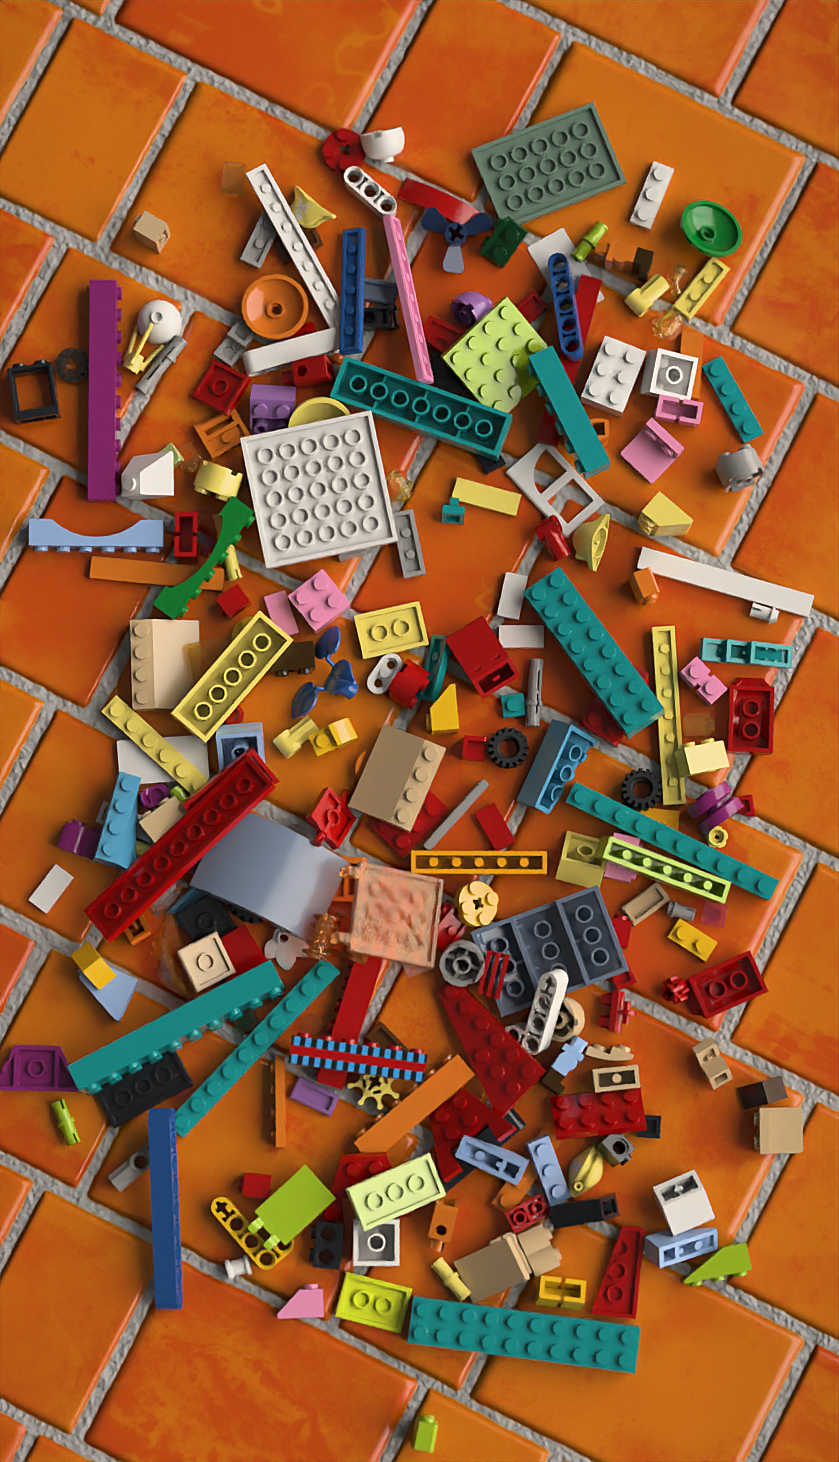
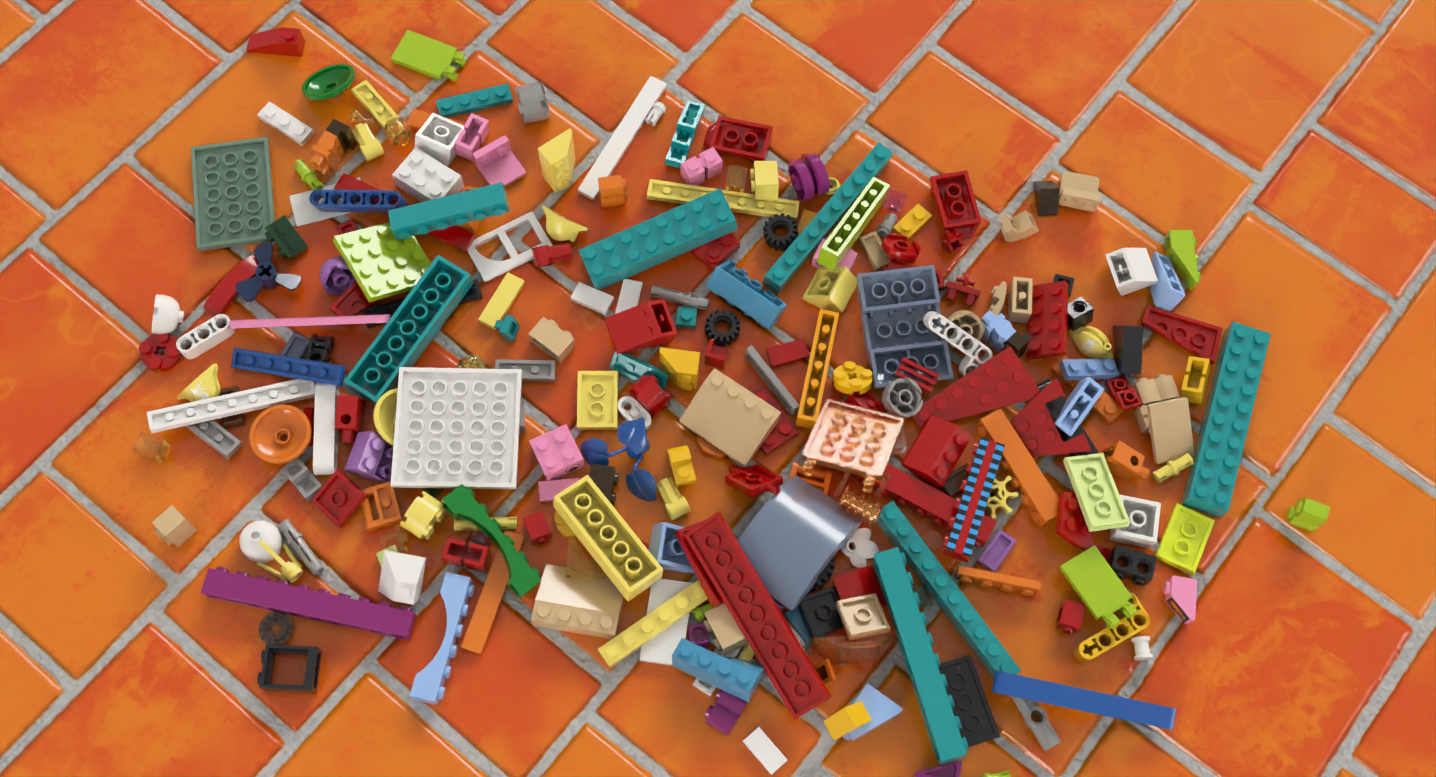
camera: 80 degrees left, 15 degrees down
(409, 1010) = (936, 451): none -> red slope
(450, 564) = (552, 339): none -> tan brick
(639, 930) = (900, 249): none -> red plate
(753, 152) = (277, 42): none -> red slope
(779, 329) = (428, 56): none -> lime tile

